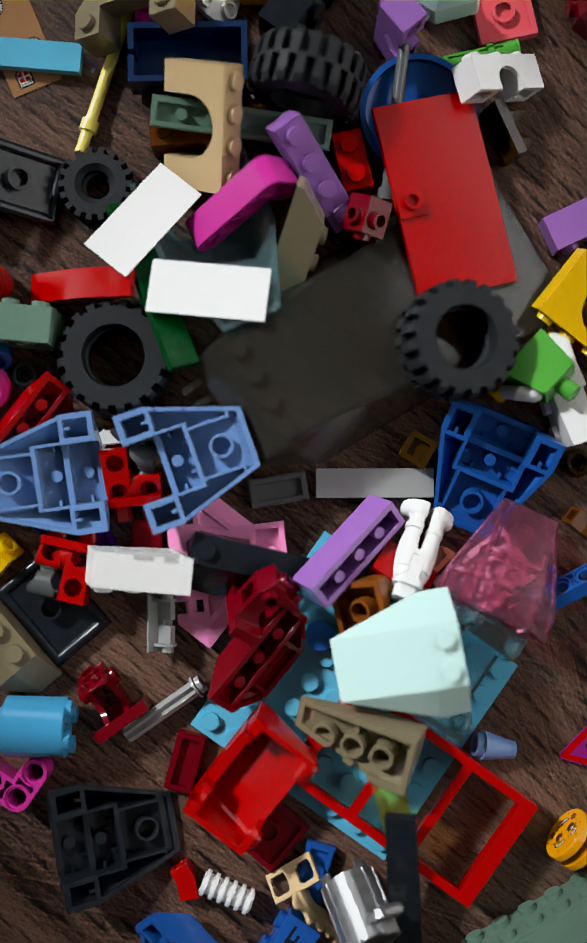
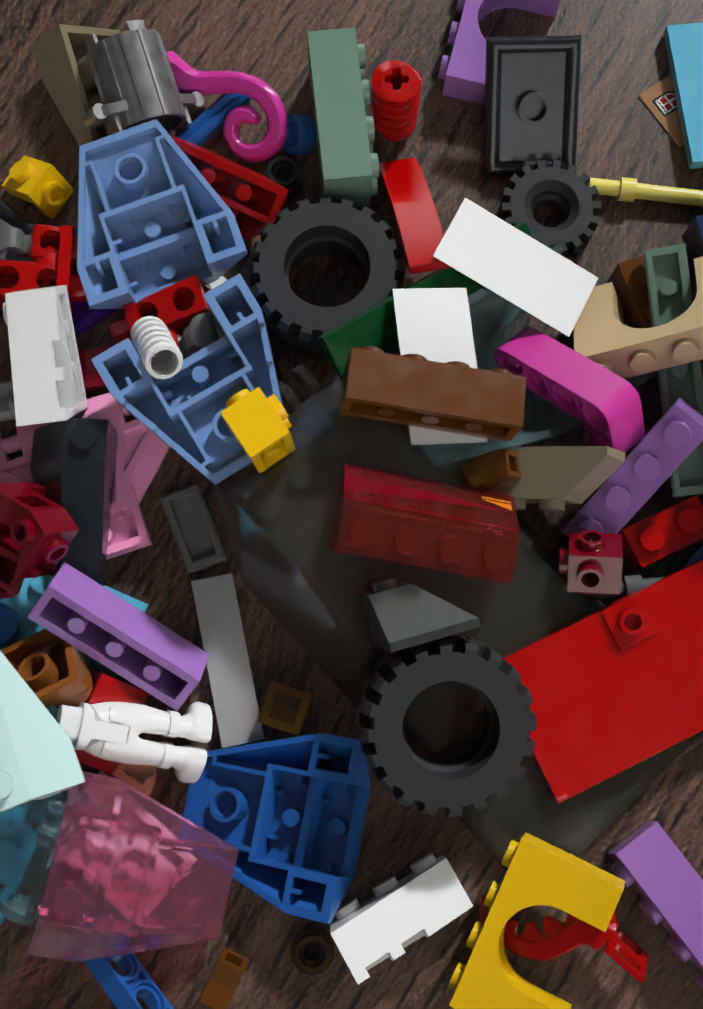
camera: 70 degrees right, 10 degrees down
(151, 487) = (156, 347): none -> white piece
(233, 298) = (432, 394): none -> reddish brown brick
(234, 422) = (259, 427): none -> yellow brick
(289, 271) = (492, 469): none -> reddish brown piece
(322, 324) = (425, 524): none -> clear red slope
(385, 349) = (408, 616): none -> pearl dark grey slope
(541, 371) = (432, 862): bright green torso -> none

